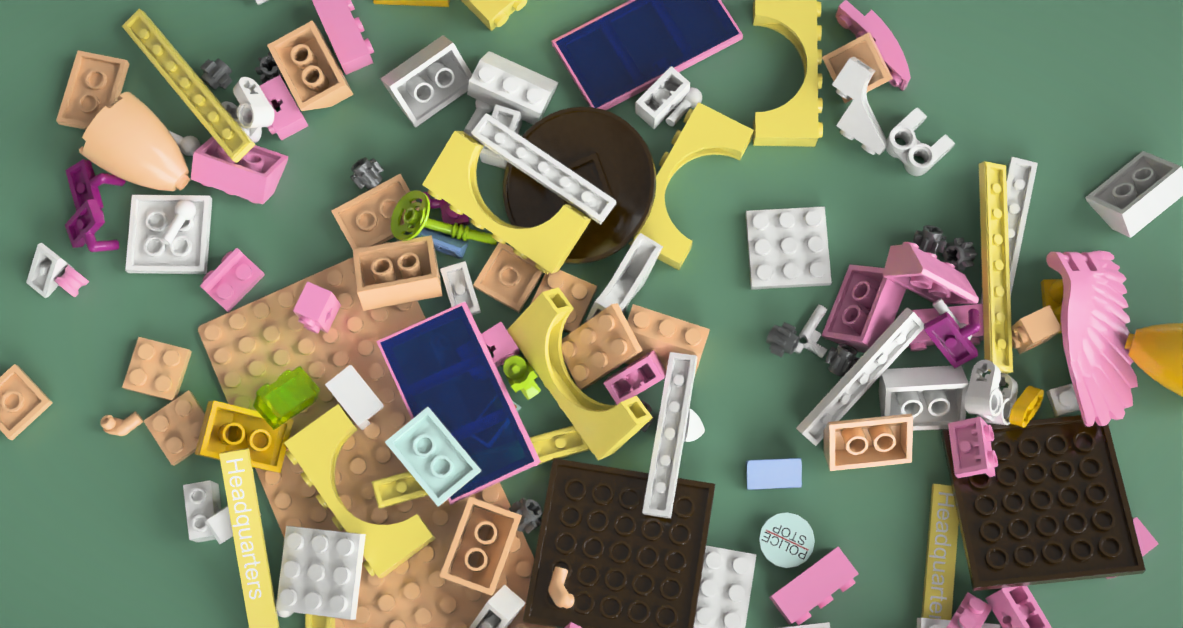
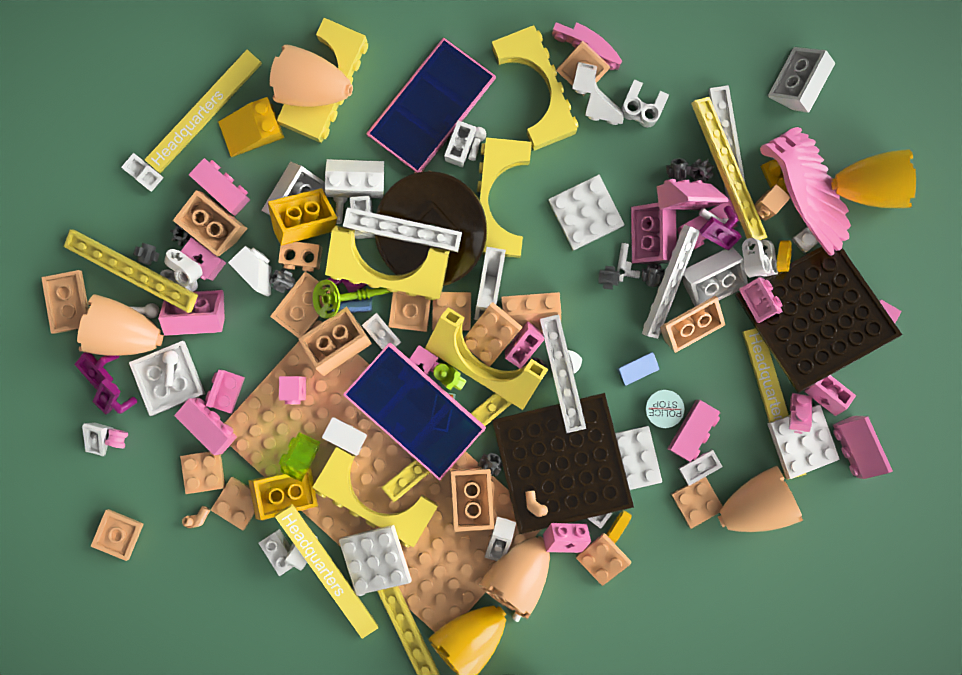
camera: 25 degrees left, 10 degrees up
(188, 311) = (206, 425): none -> bright pink brick
(338, 141) = (254, 269): none -> white slope
(406, 148) = (301, 251): none -> light nougat brick
(425, 104) = (301, 216): none -> yellow slope
(433, 456) = (415, 456): light aqua plate -> none

